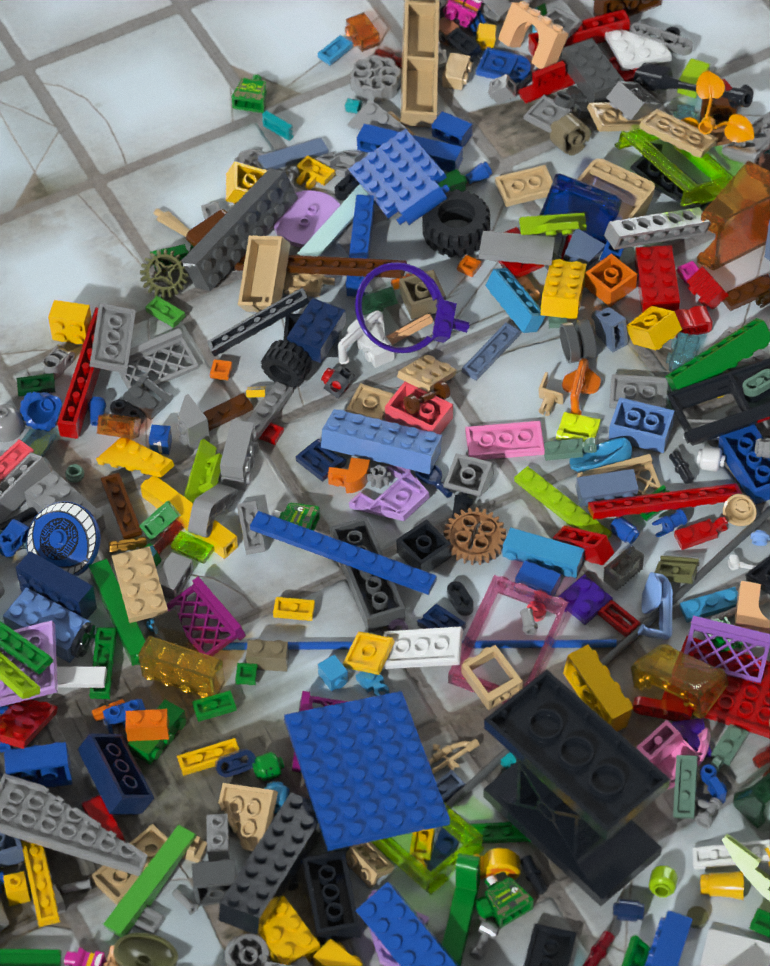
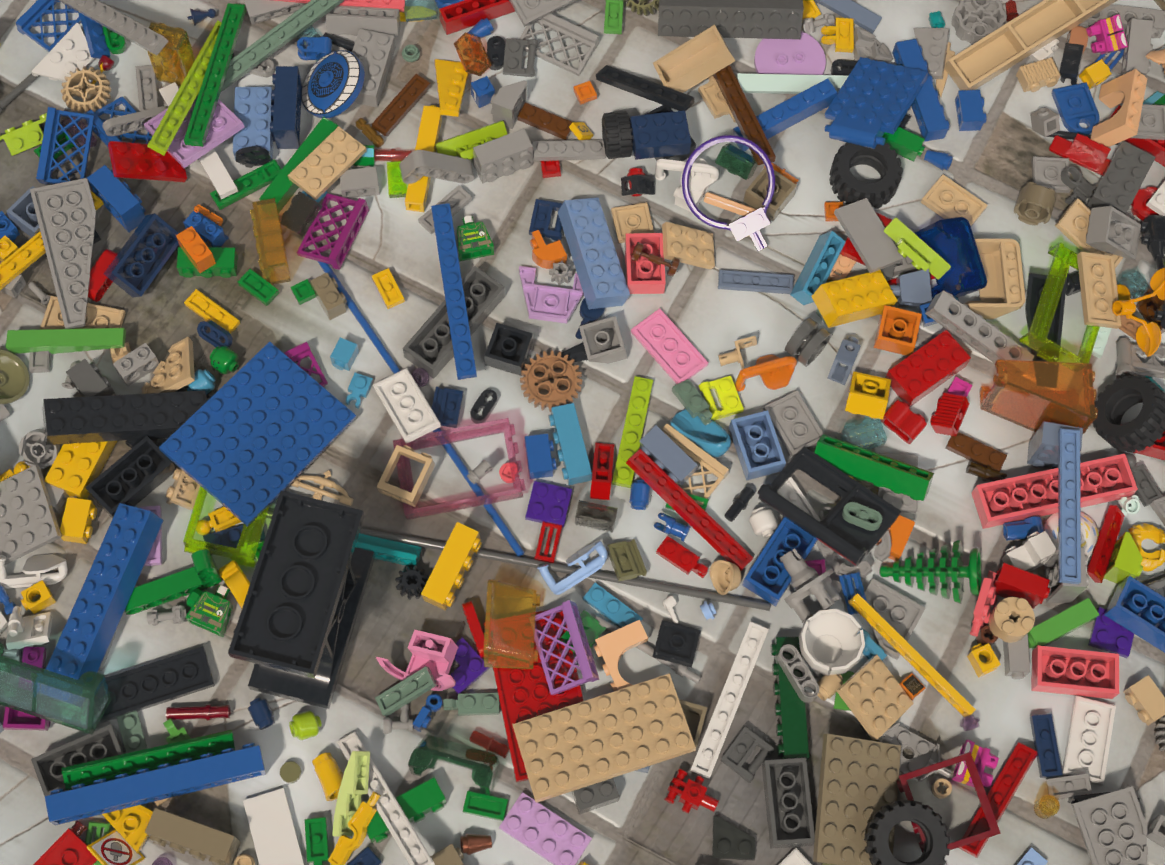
camera: 50 degrees right, 15 degrees up
(160, 520) = (401, 140): green plate -> none
(368, 653) = (377, 369): yellow tile -> none

